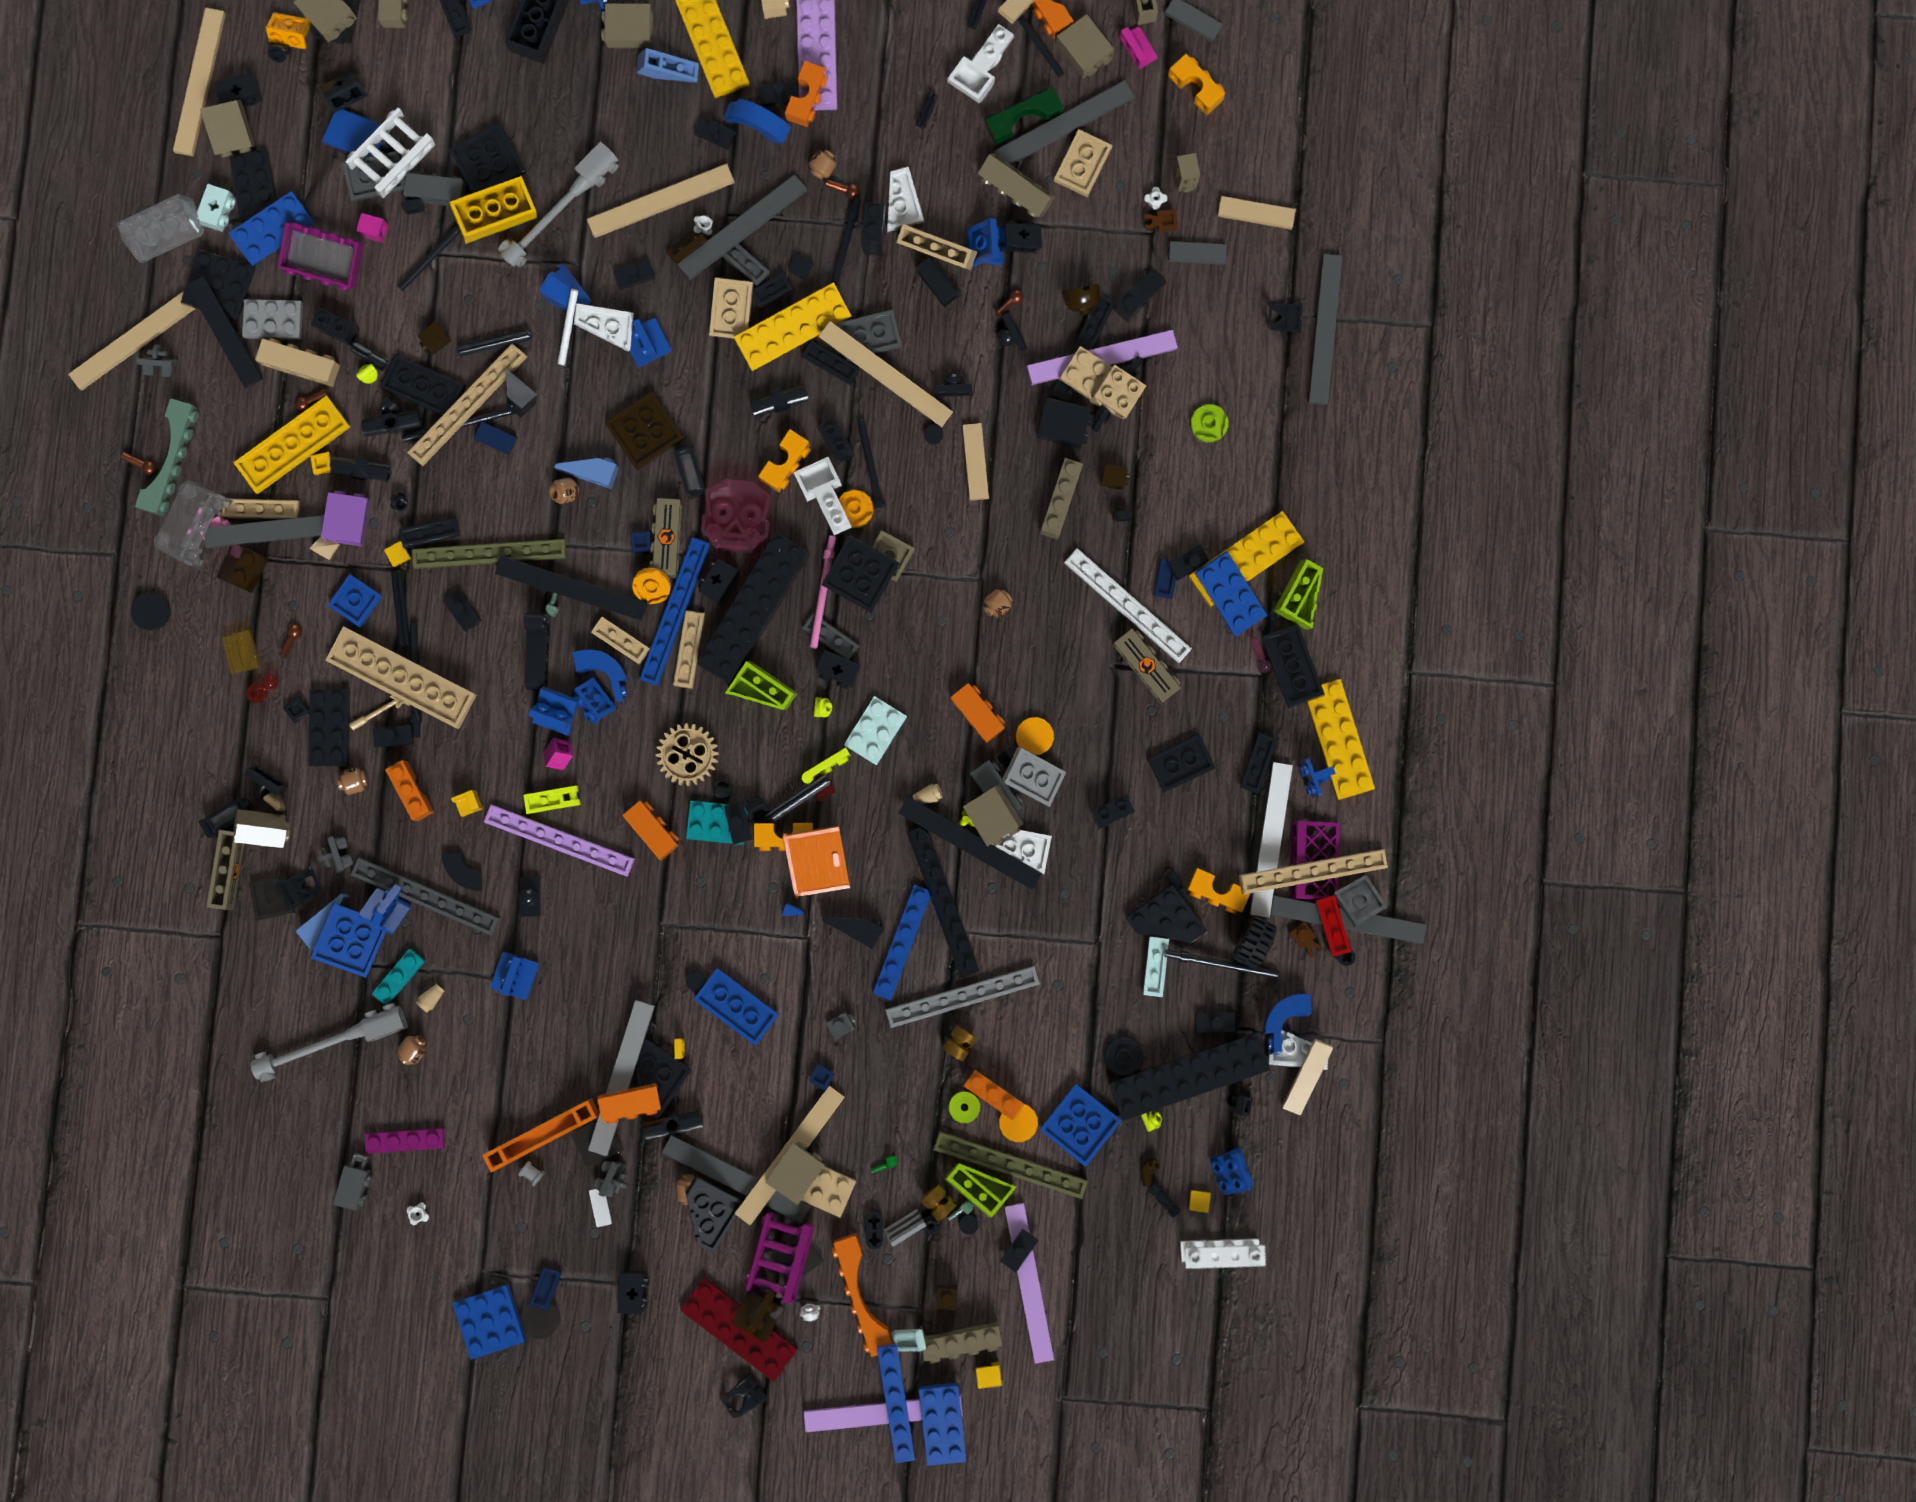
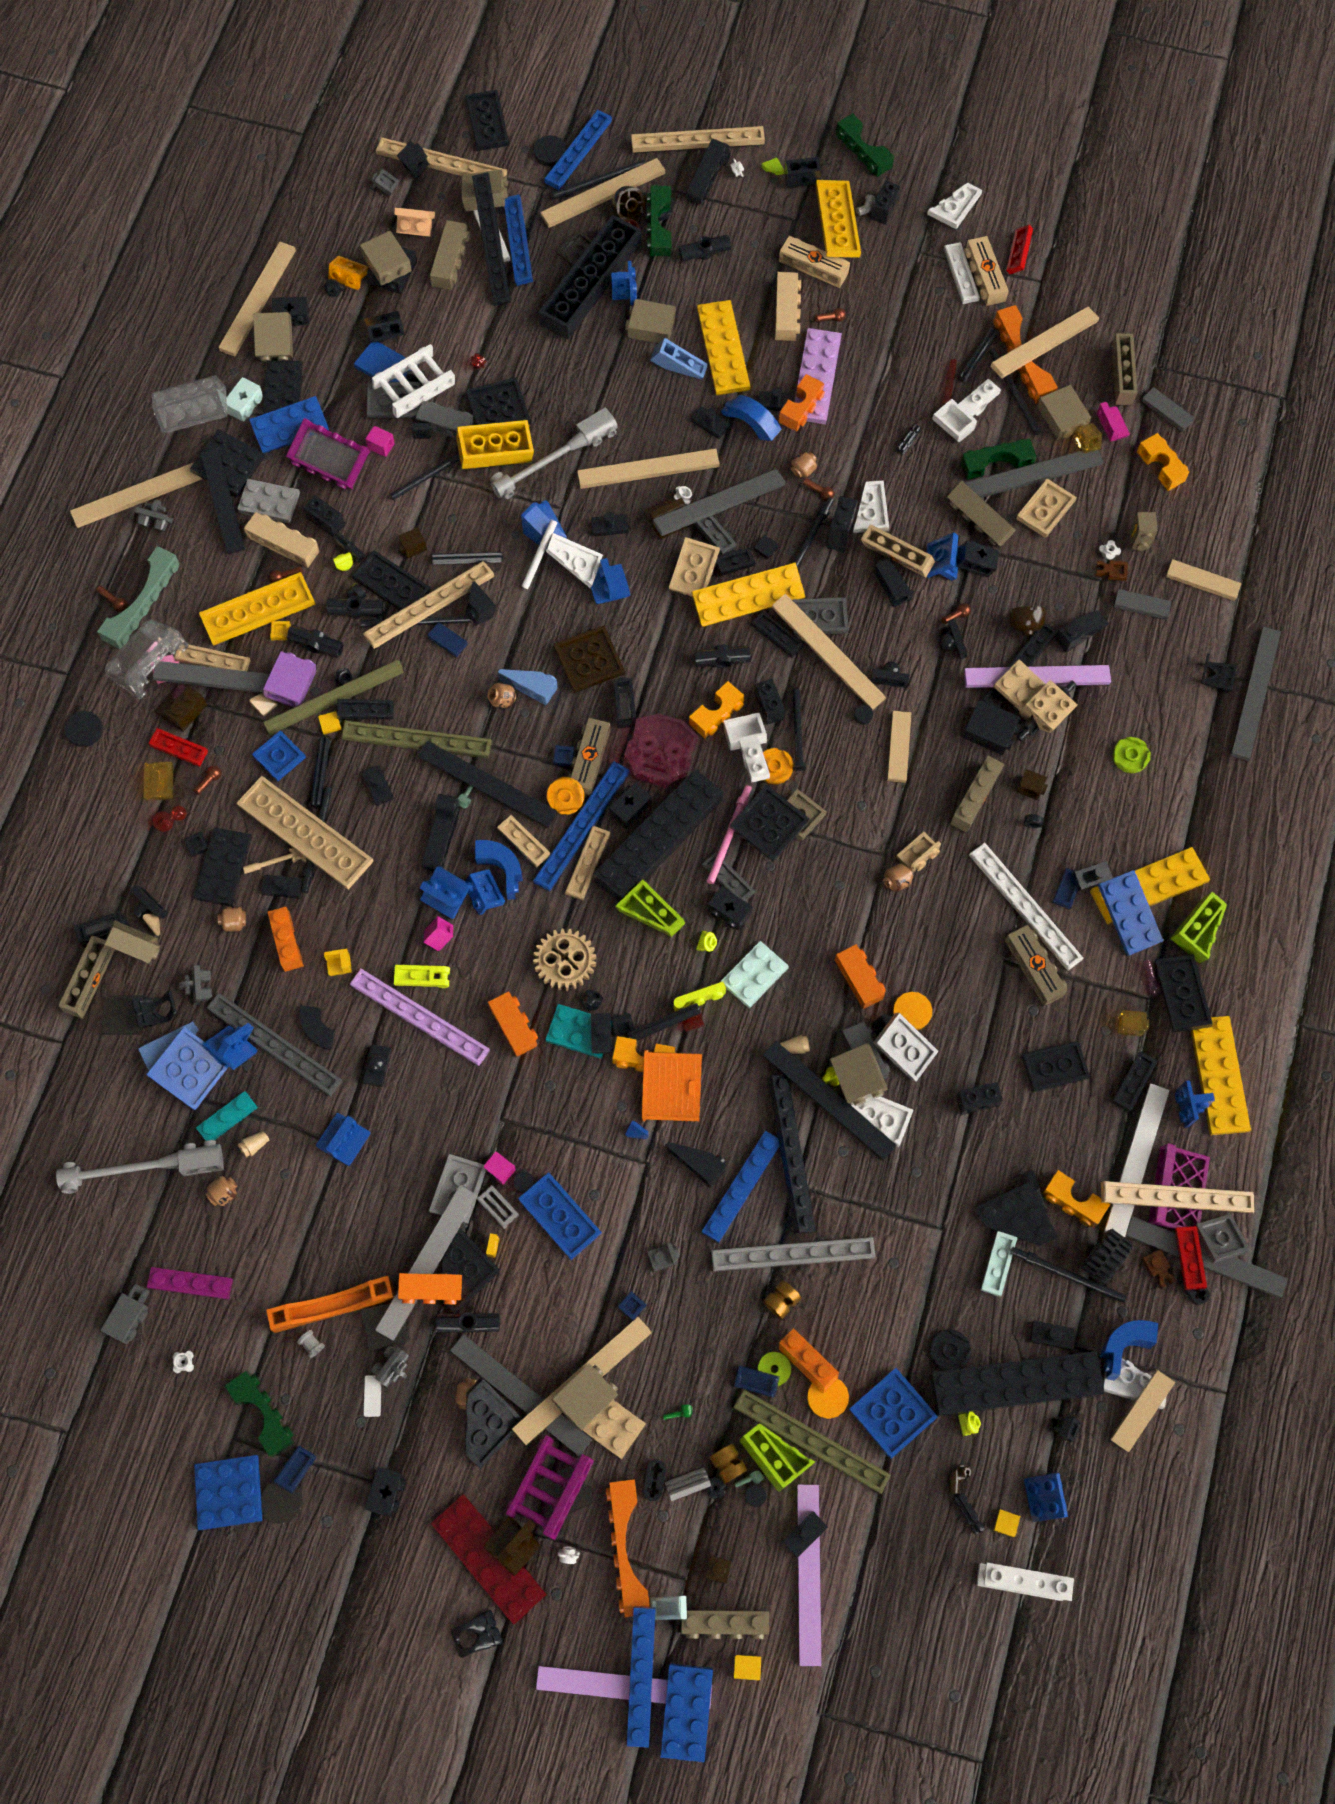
camera: 10 degrees right, 15 degrees down
(251, 612) = (178, 747): none -> red plate
(393, 527) = (330, 698): none -> olive tile
(454, 110) = (478, 361): none -> clear red plate
(518, 1260) = (274, 1436): none -> dark green arch
(632, 987) = (455, 1174): none -> light grey plate
(669, 973) = (500, 1168): none -> dark pink panel
(681, 1003) = (509, 1219): none -> light grey tile
(950, 1122) = (756, 1381): none -> dark blue tile
(959, 32) = (950, 381): none -> clear red bar
(1012, 572) = (919, 852): none -> tan bracket
(1115, 73) = (1088, 438): none -> clear yellow brick
(1249, 705) = (1133, 1023): none -> clear yellow brick

